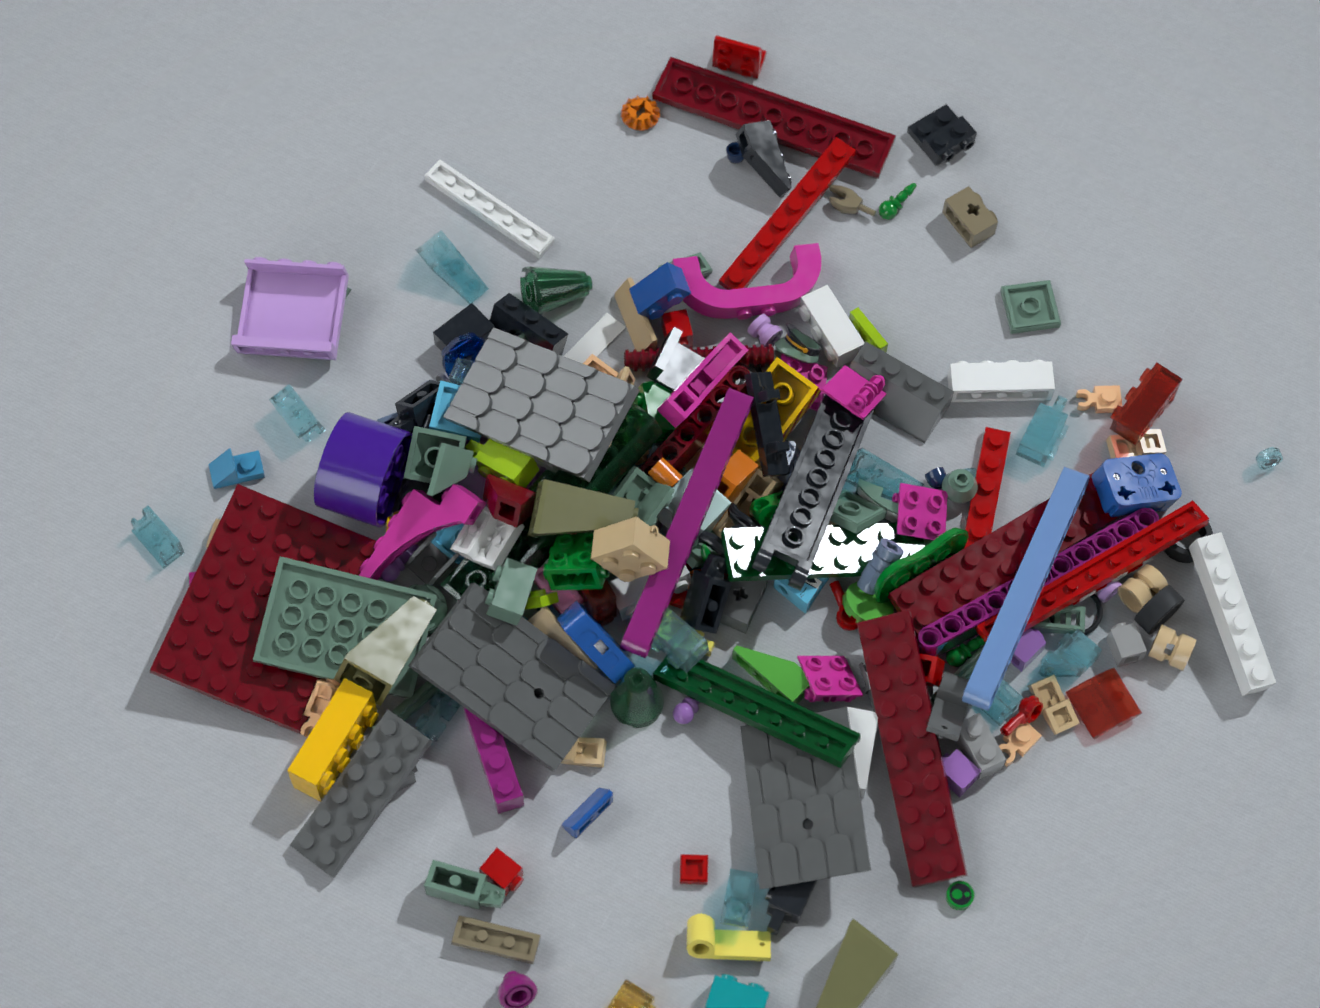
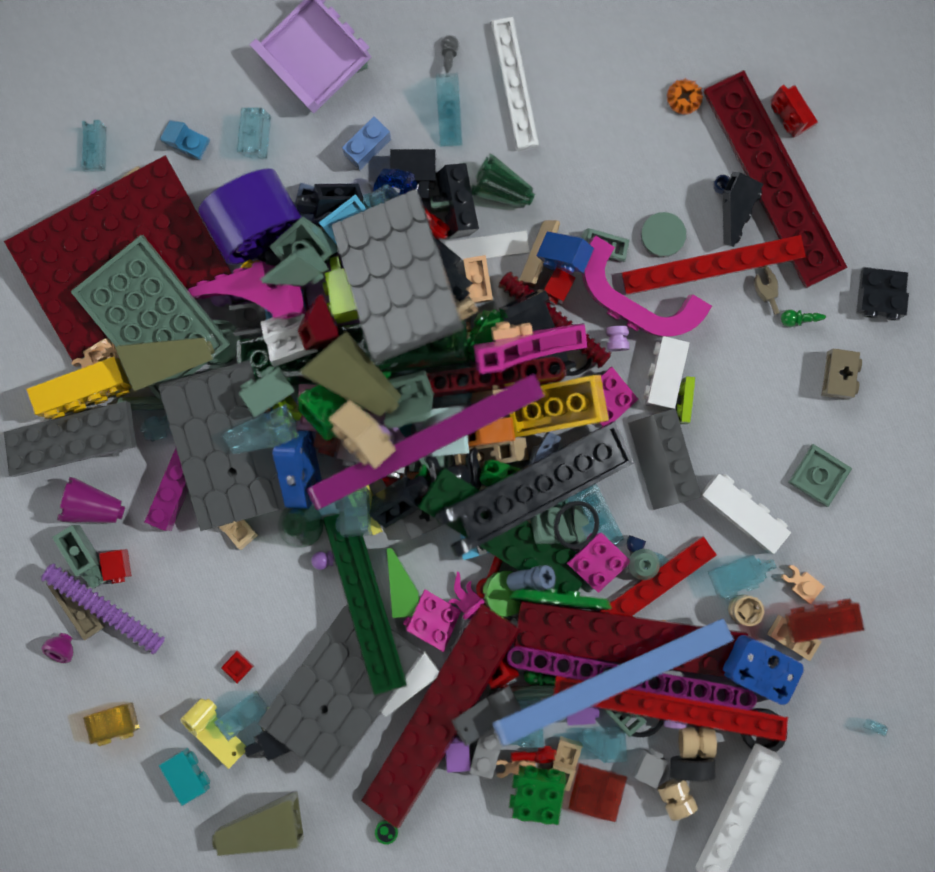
camera: 45 degrees right, 20 degrees up
(405, 221) = (449, 51): none -> dark grey bar
(406, 346) = (367, 143): none -> medium blue brick
(428, 837) = (88, 504): none -> magenta cone
(526, 915) = (102, 608): none -> medium lavender piece
(540, 625) = (262, 432): none -> clear light blue slope
(588, 812) = (203, 571): blue slope -> none
(665, 473) = (441, 395): orange piece -> none
(669, 384) = (505, 330): none -> light nougat plate
(724, 226) = (663, 234): none -> sand green tile
(767, 424) = (544, 416): black hinge -> none
(798, 346) = (628, 370): sand green piece -> none
(843, 640) = (469, 601): none -> dark pink piece
(855, 391) = (632, 439): dark pink hinge -> none
(860, 506) = (559, 514): none -> black tyre
(1056, 742) = (537, 794): none -> green brick
(1077, 451) = (746, 610): none -> tan wheel

